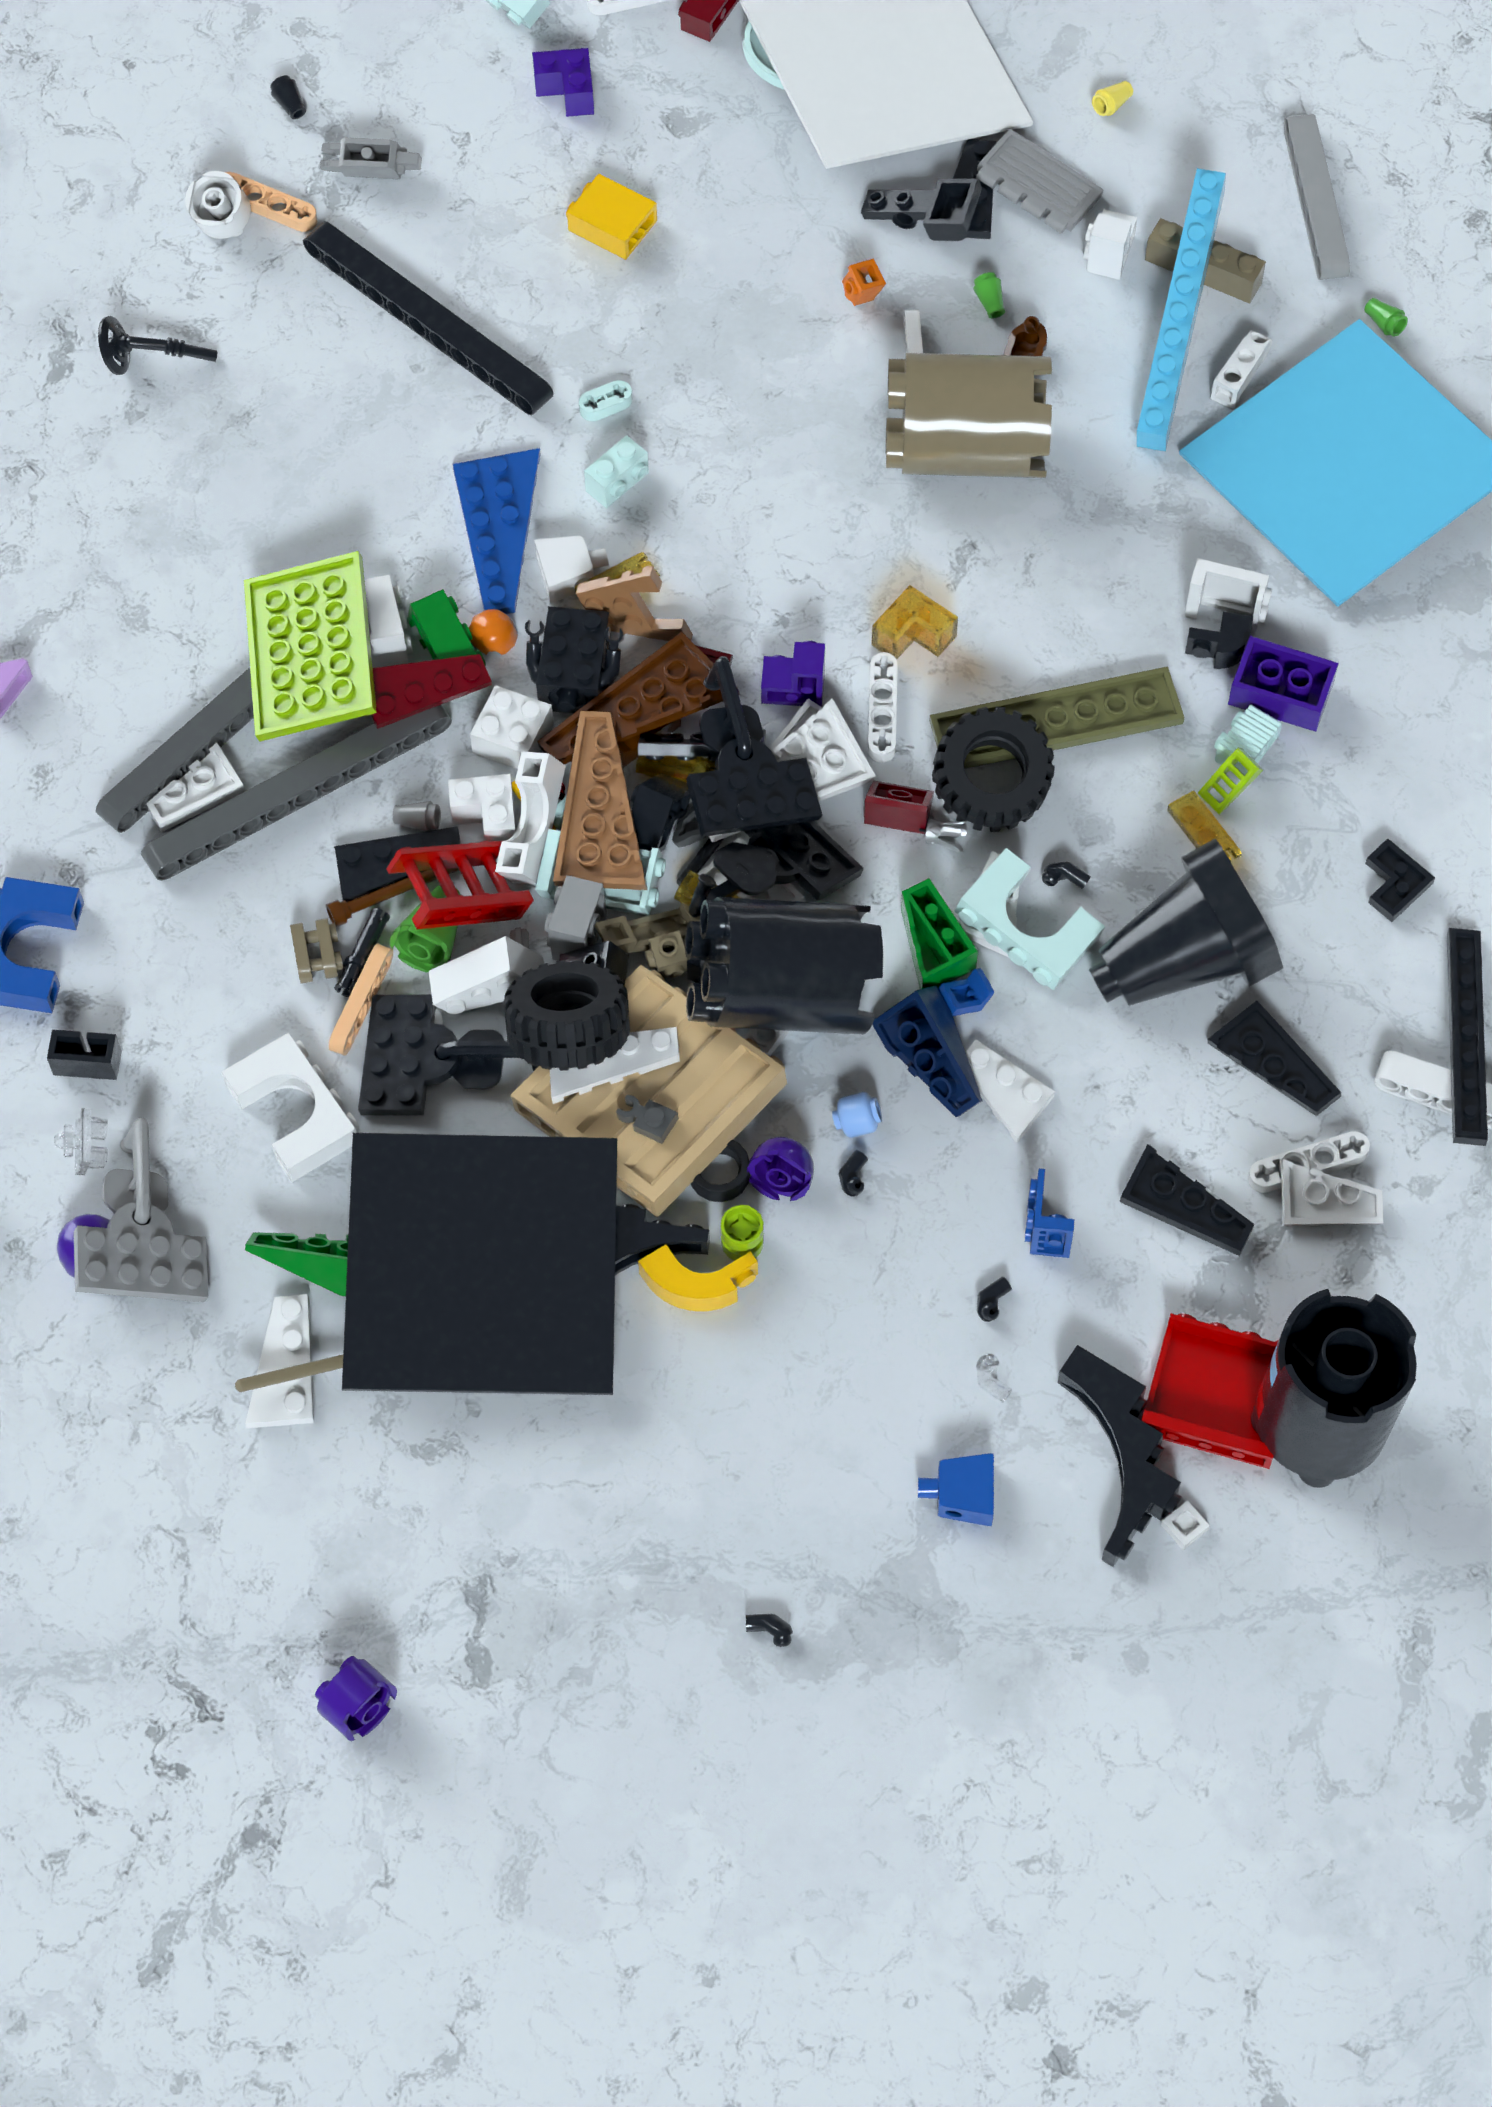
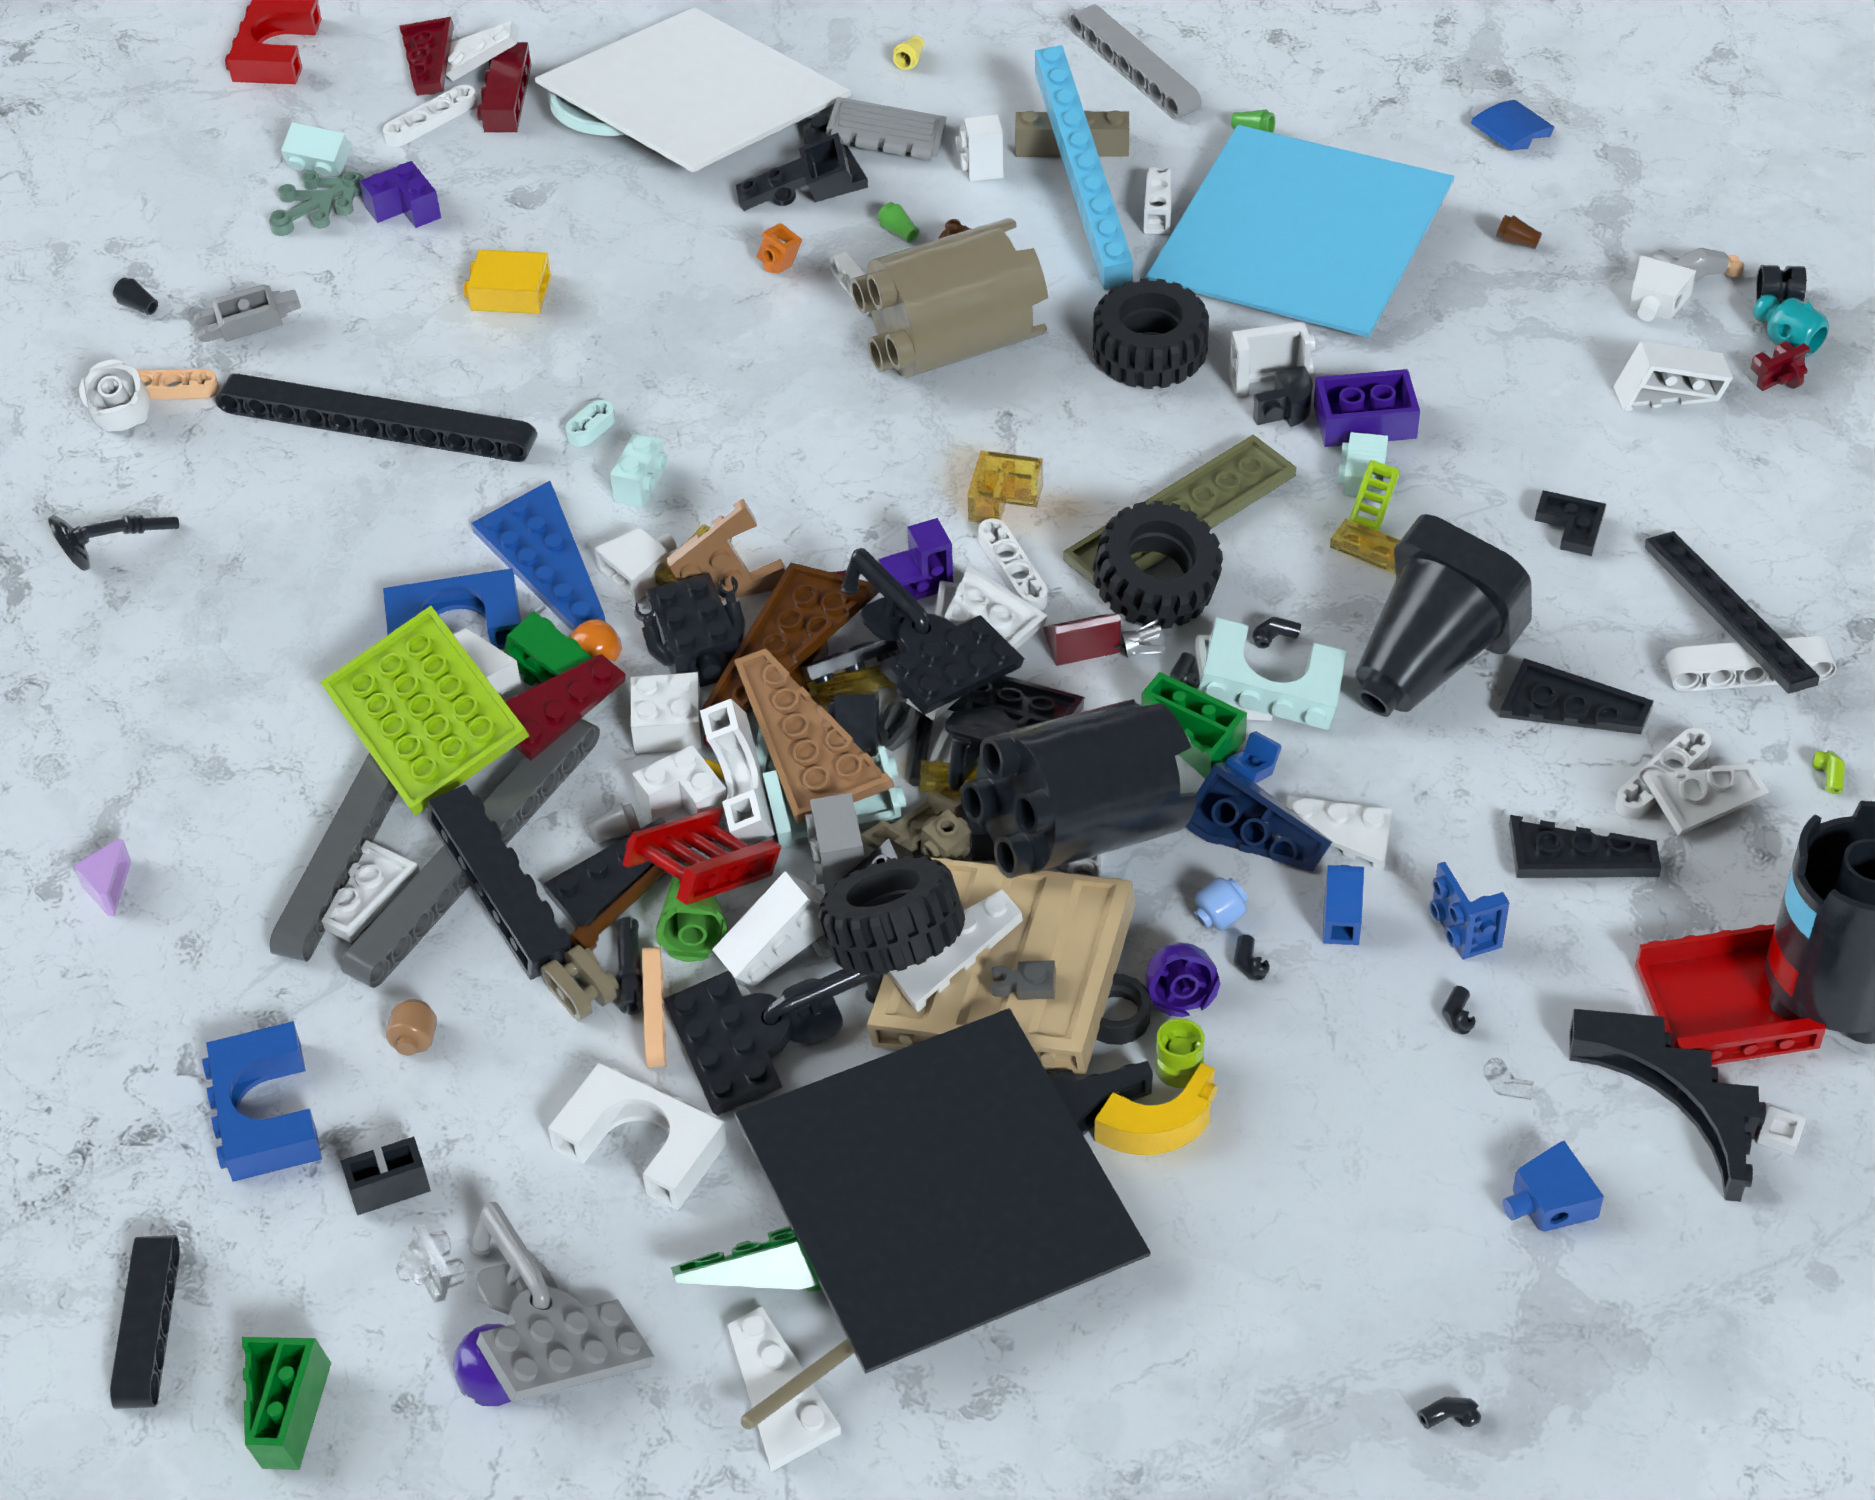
camera: 25 degrees left, 15 degrees down
(169, 931) = (411, 1027): none -> medium nougat head
(293, 832) = (498, 880): none -> black brick
(433, 545) = (487, 593): none -> blue arch
(524, 44) = (347, 185): none -> sand green plant
(951, 1164) = (1343, 905): none -> blue slope
(960, 880) = (1182, 670): none -> black arm
(1143, 488) = (1150, 358): none -> black tyre
(1457, 1226) = (1833, 767): none -> lime arm

